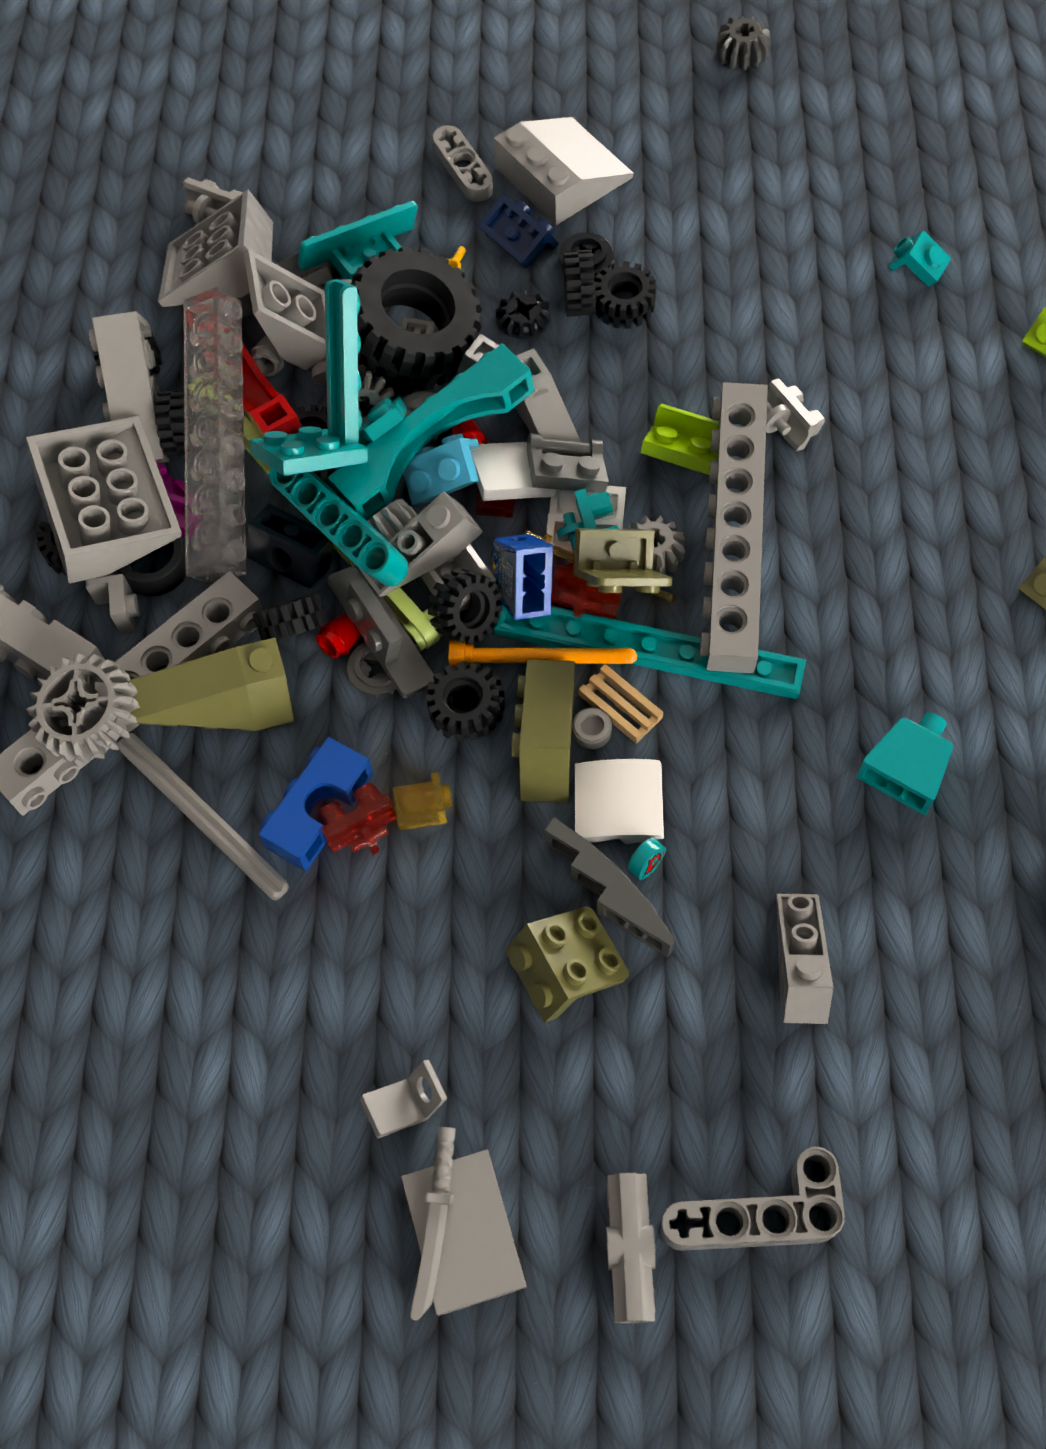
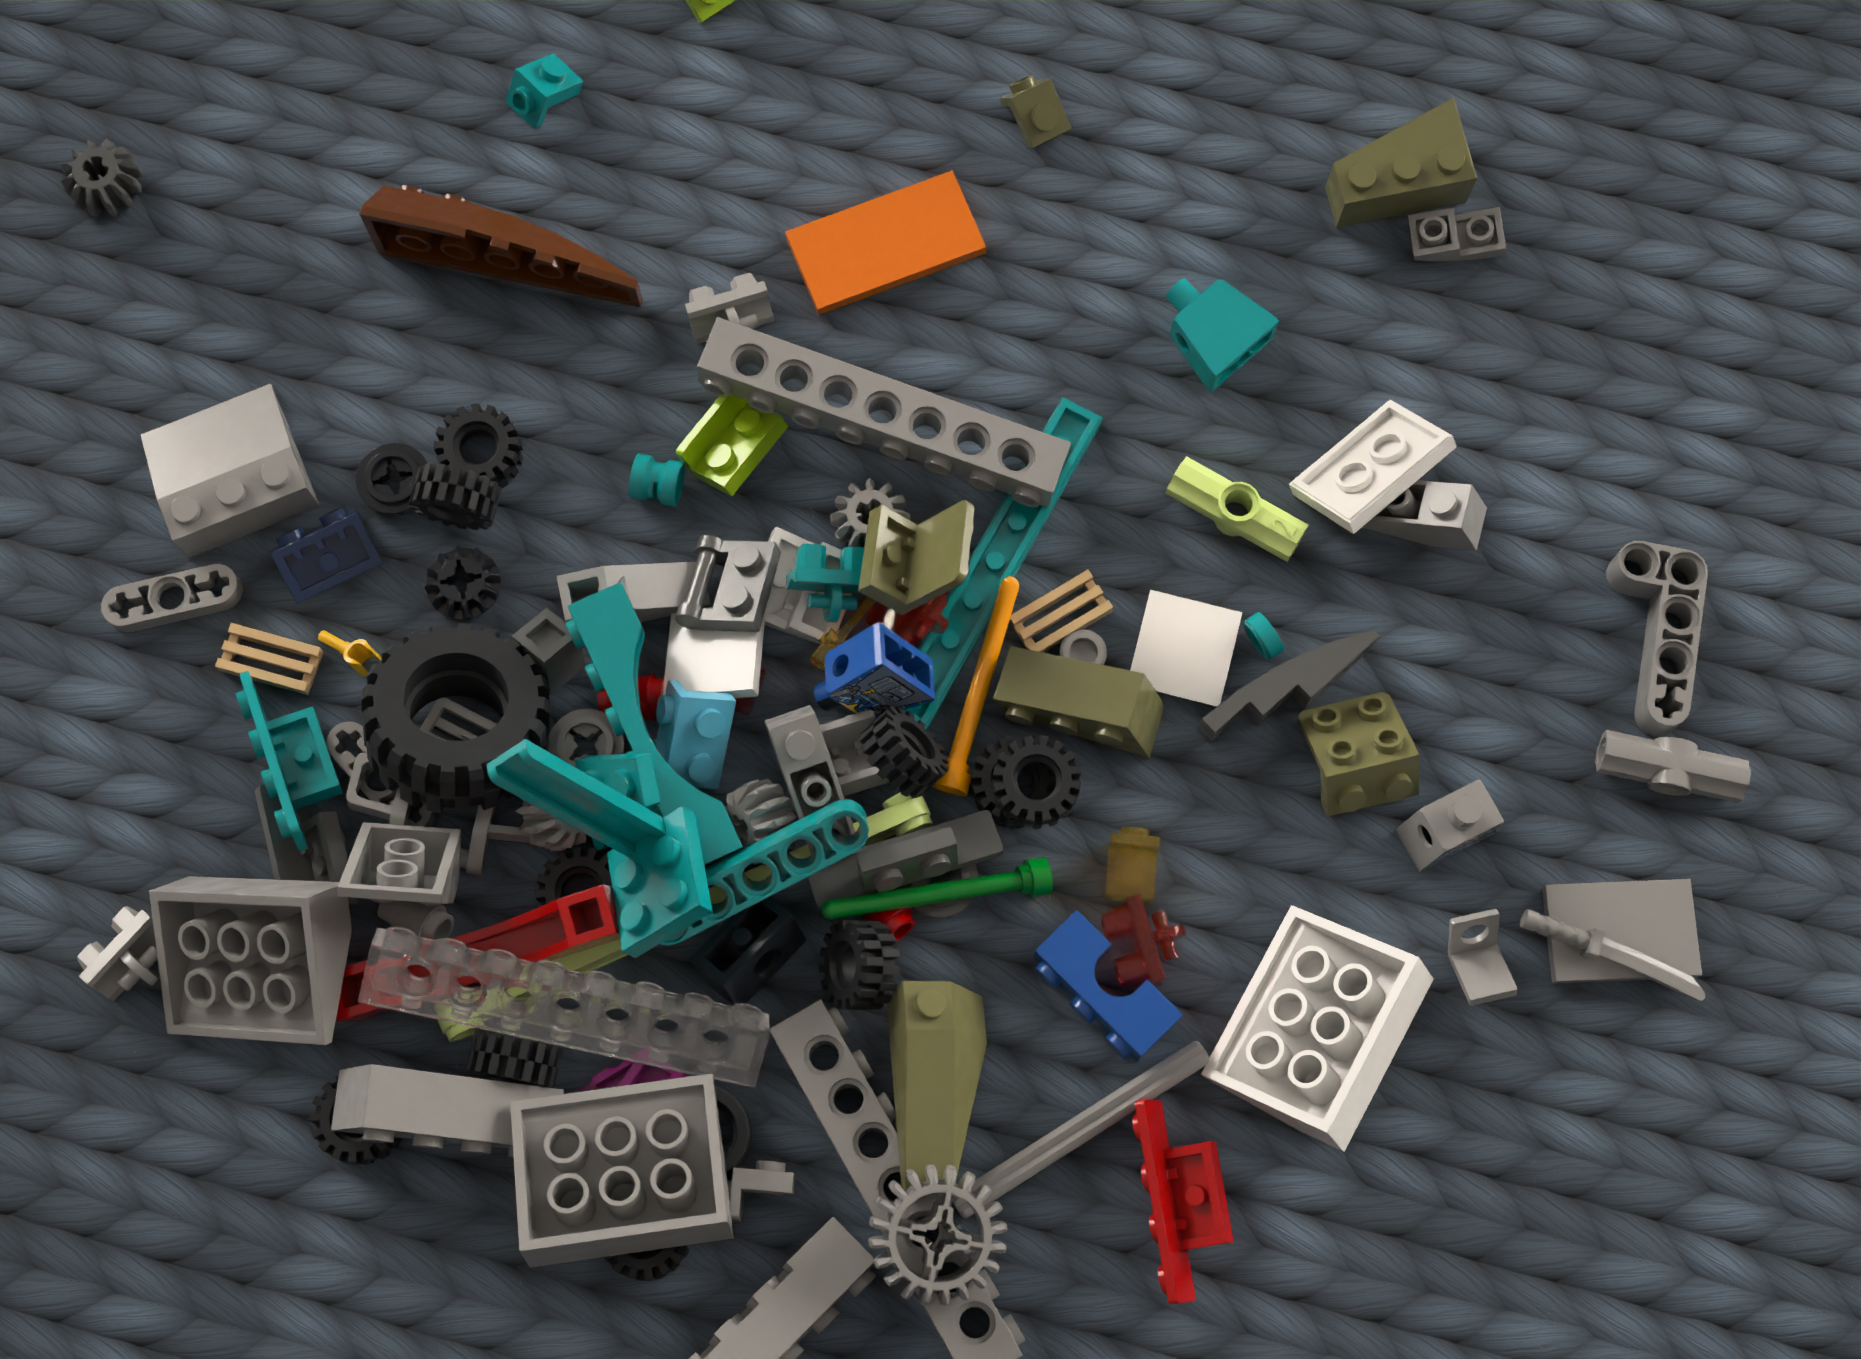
camera: 80 degrees left, 10 degrees up
(153, 897) = (1184, 1196): none -> red bracket
(316, 979) = (1319, 1026): none -> white slope
(392, 728) = (1030, 878): none -> green piece
(436, 205) = (232, 648): none -> tan tile
(521, 1051) = (1452, 823): none -> light grey torso
(636, 401) = (656, 480): none -> teal wheel
(747, 832) = (1210, 492): none -> yellowish green piece
(782, 250) = (488, 243): none -> reddish brown wedge
(830, 912) = (1372, 466): none -> white tile
(891, 507) = (885, 242): none -> orange tile

